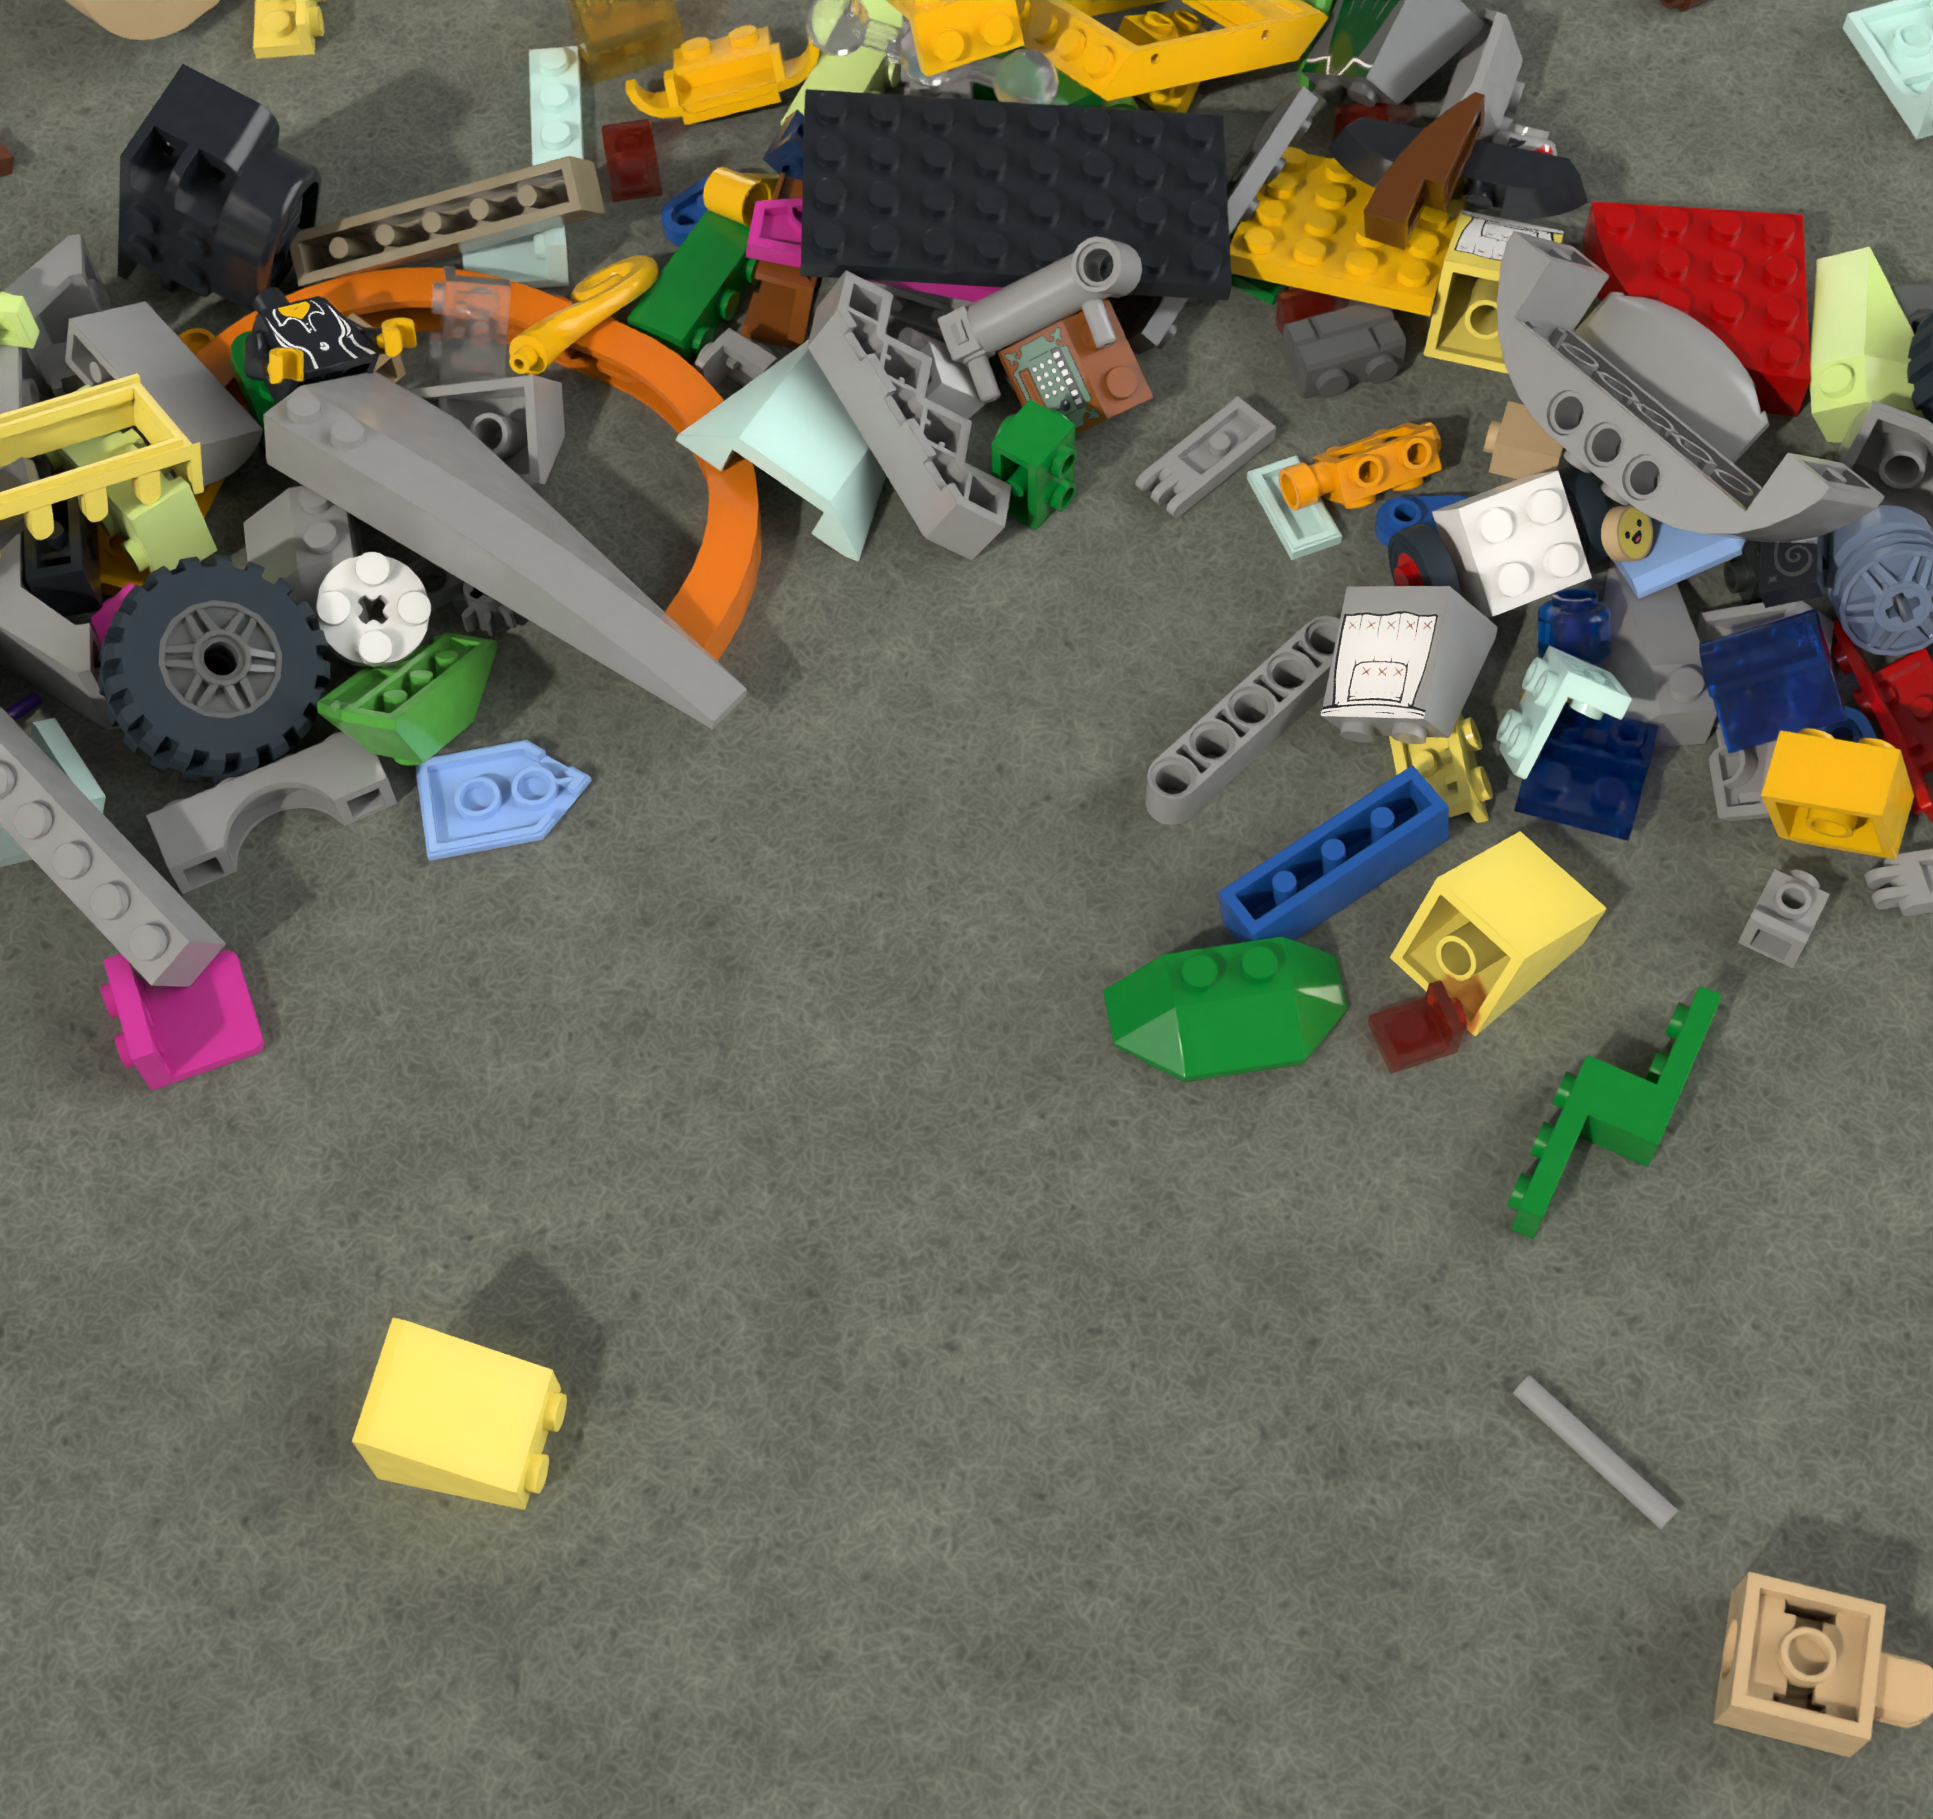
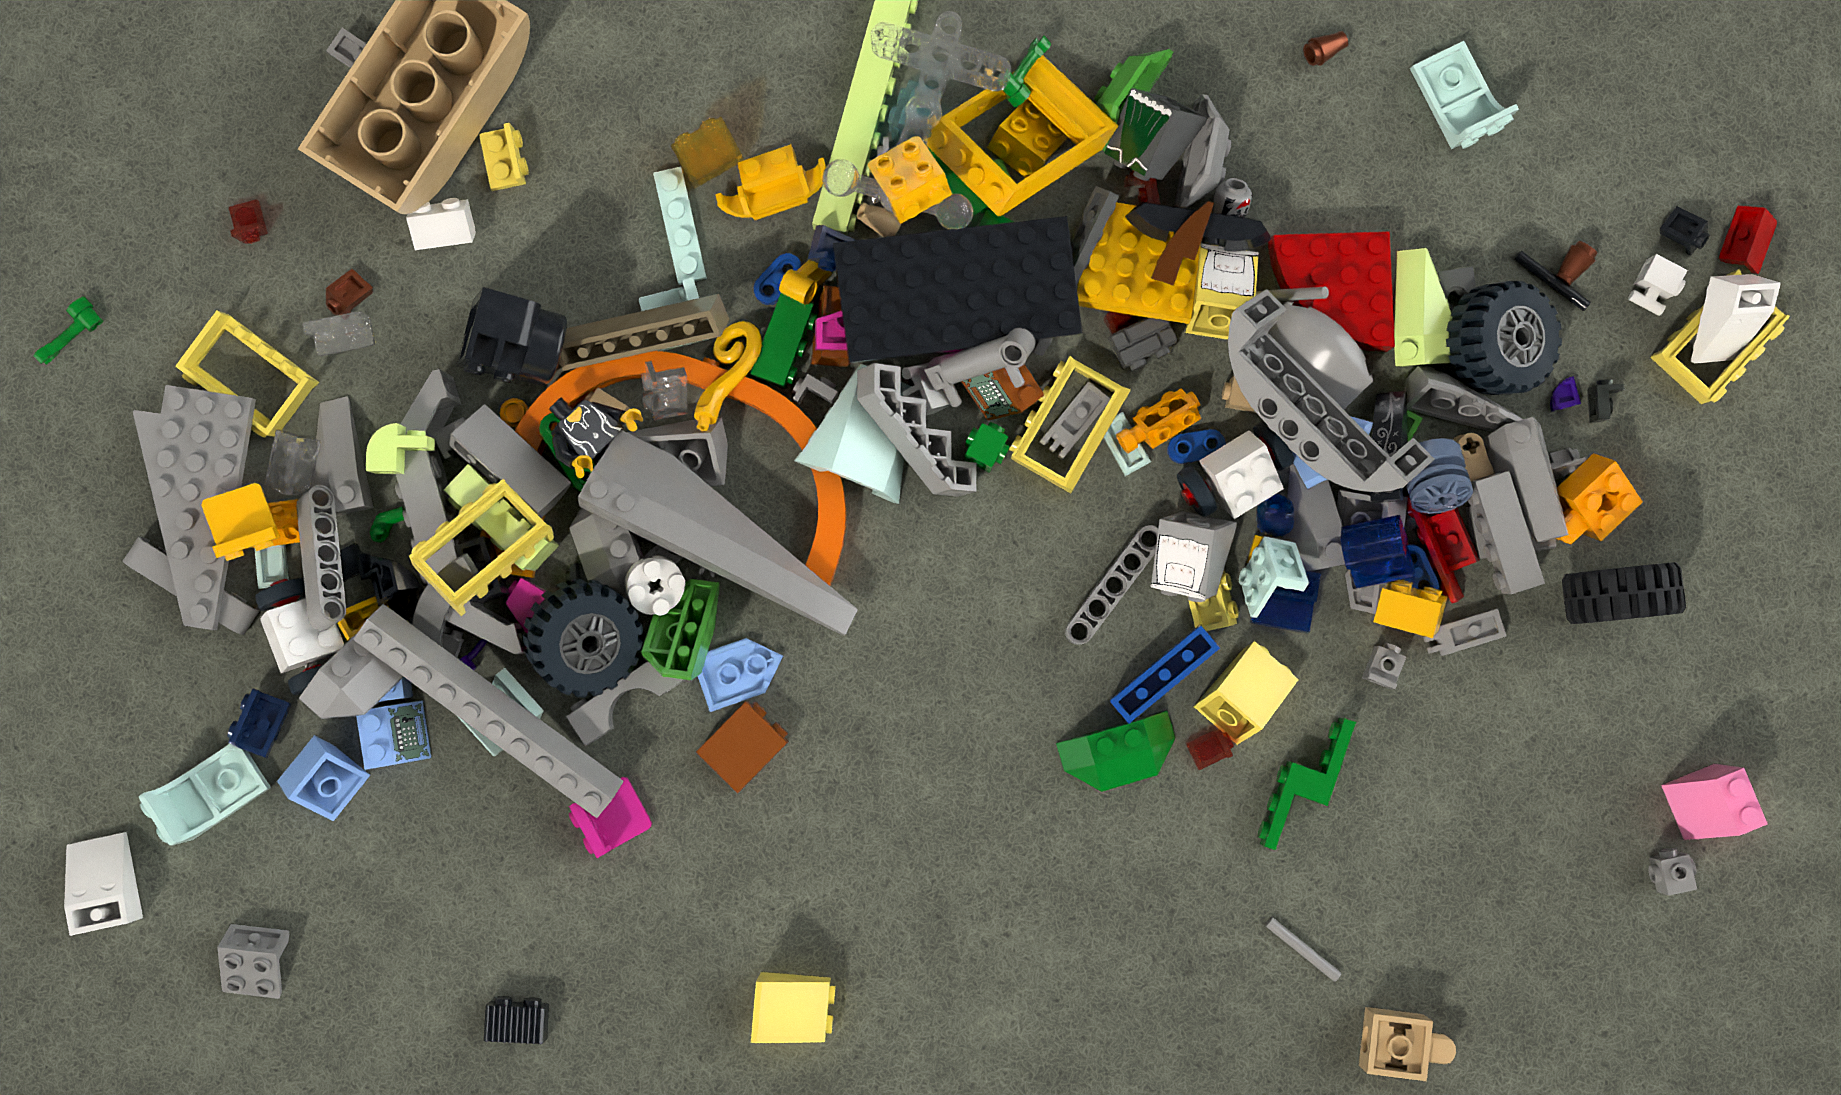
camera: 10 degrees left, 25 degrees up
(139, 71) = (441, 224): none -> white brick
(478, 916) = (743, 745): none -> dark orange brick
(631, 160) = (729, 251): clear red bracket -> none
(1237, 481) = (1037, 418): none -> light yellow window
(1626, 534) = (1297, 466): tile -> none
(1643, 273) = (1299, 293): none -> light grey bar

